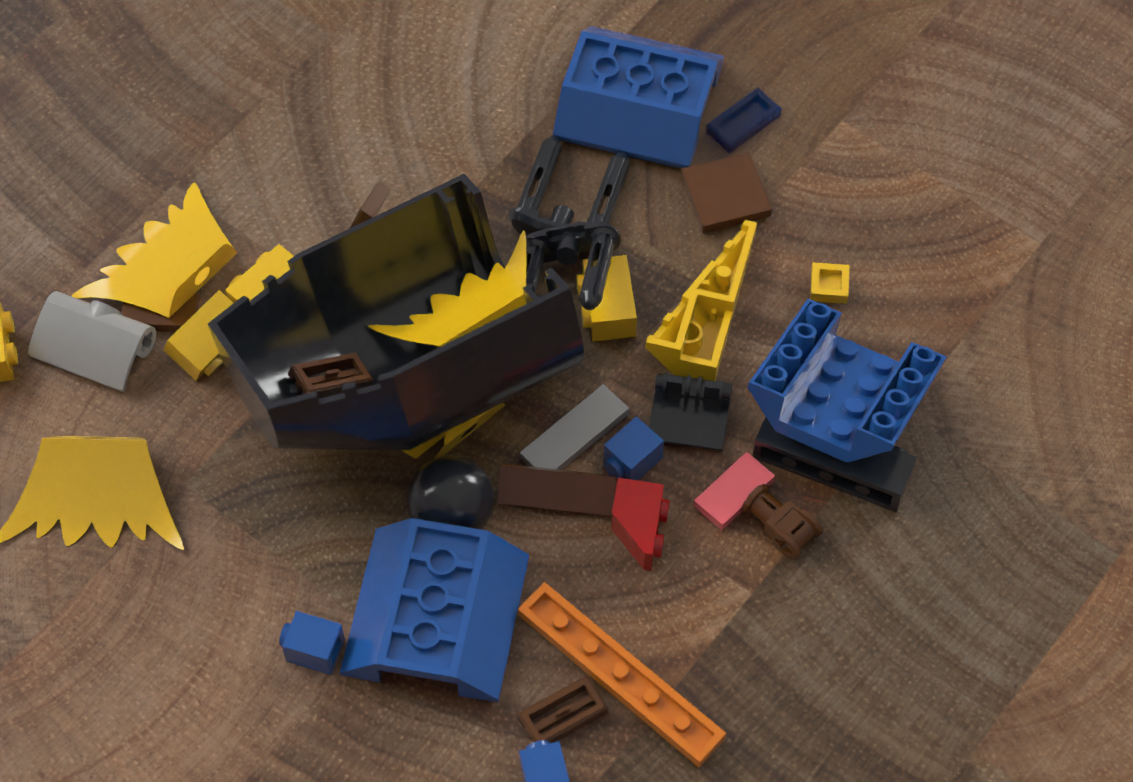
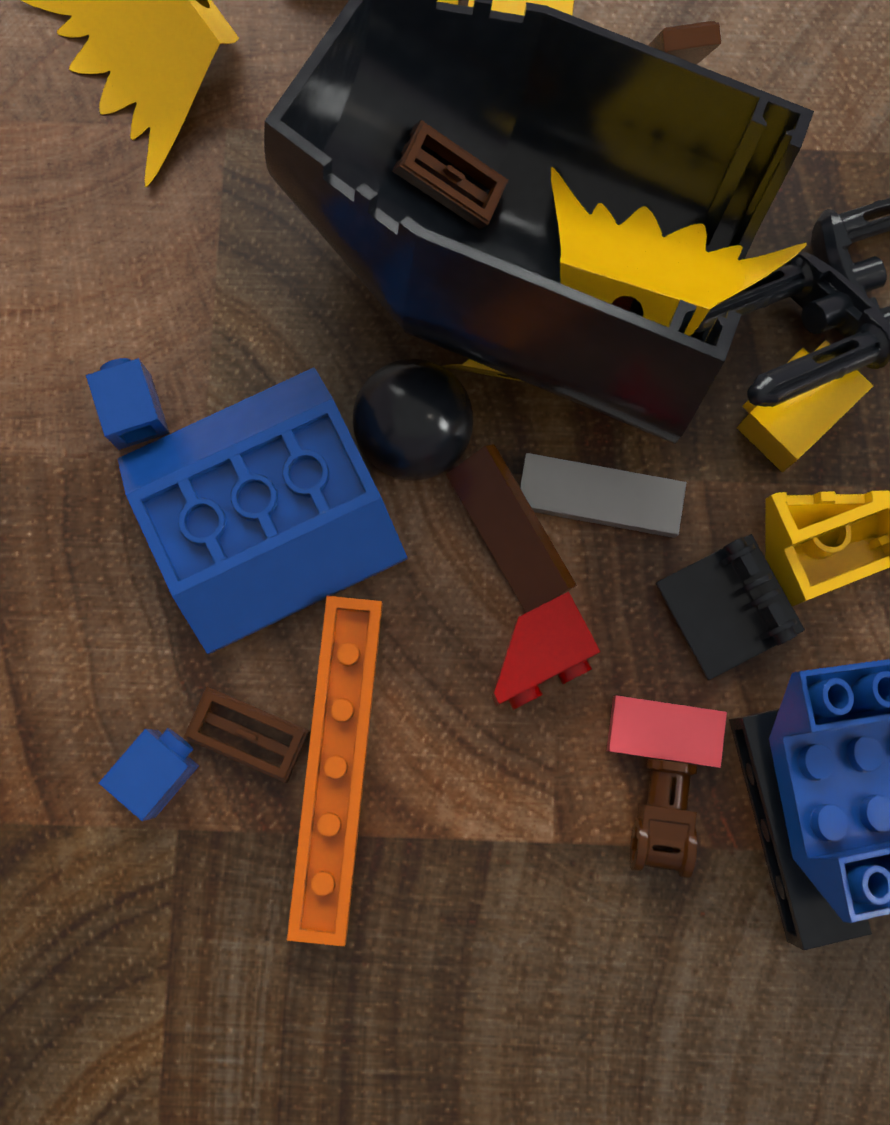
camera: 50 degrees right, 20 degrees up
(633, 451) = (622, 580): blue brick -> none

